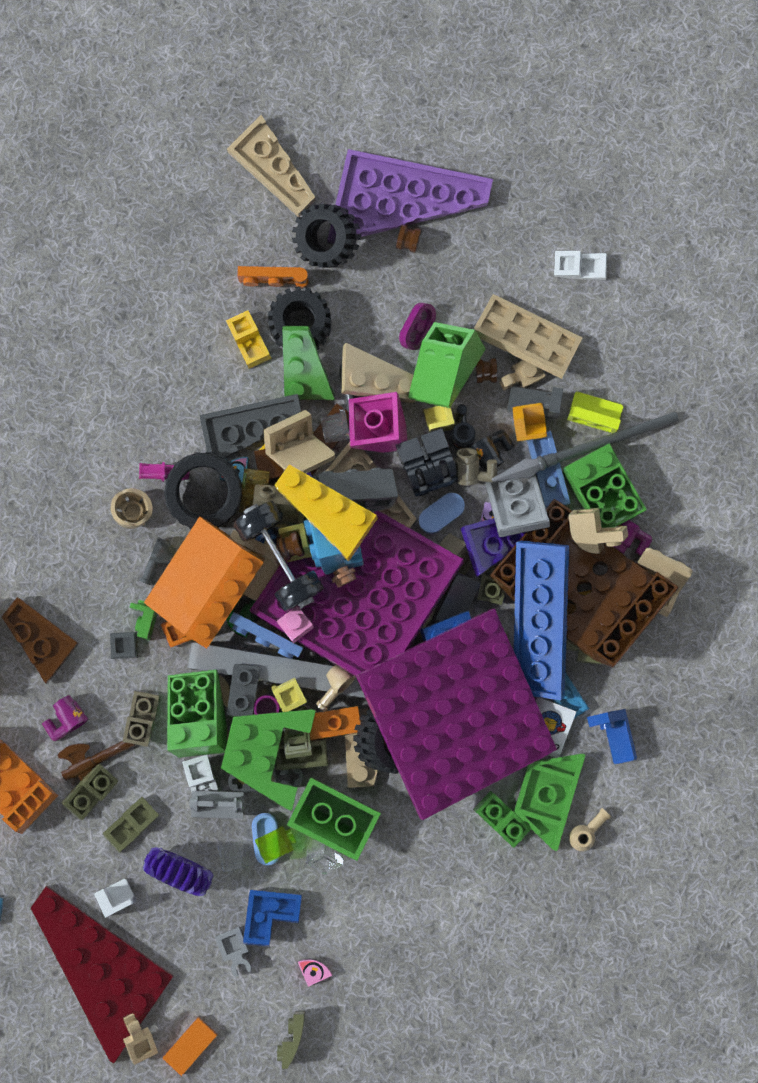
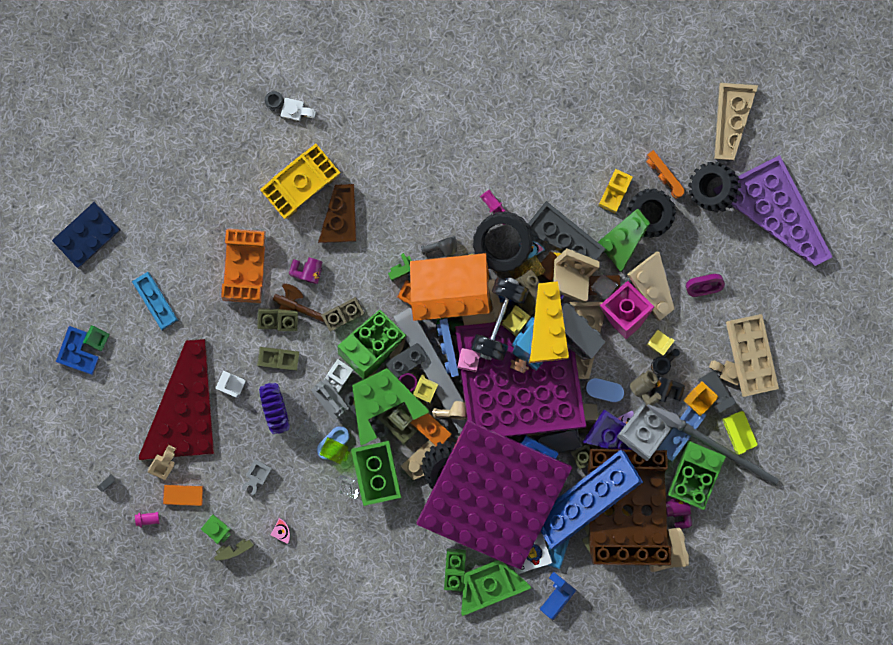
camera: 50 degrees right, 5 degrees up
(123, 645) = (376, 268): dark grey tile -> none
(132, 511) = (458, 207): tan helmet -> none
(255, 1040) = (216, 529): none -> bright green bracket
(264, 909) = (294, 475): blue plate -> none
(290, 546) = (511, 320): reddish brown wheel -> none
(408, 238) = (754, 236): reddish brown wheel -> none
(429, 465) = (625, 360): black hips -> none
(445, 364) = (694, 321): bright green slope -> none
(486, 371) = (711, 347): reddish brown wheel -> none
(580, 266) = (822, 352): white slope -> none
(588, 534) = (661, 489): tan brick -> none
(589, 830) = (488, 625): tan bar -> none

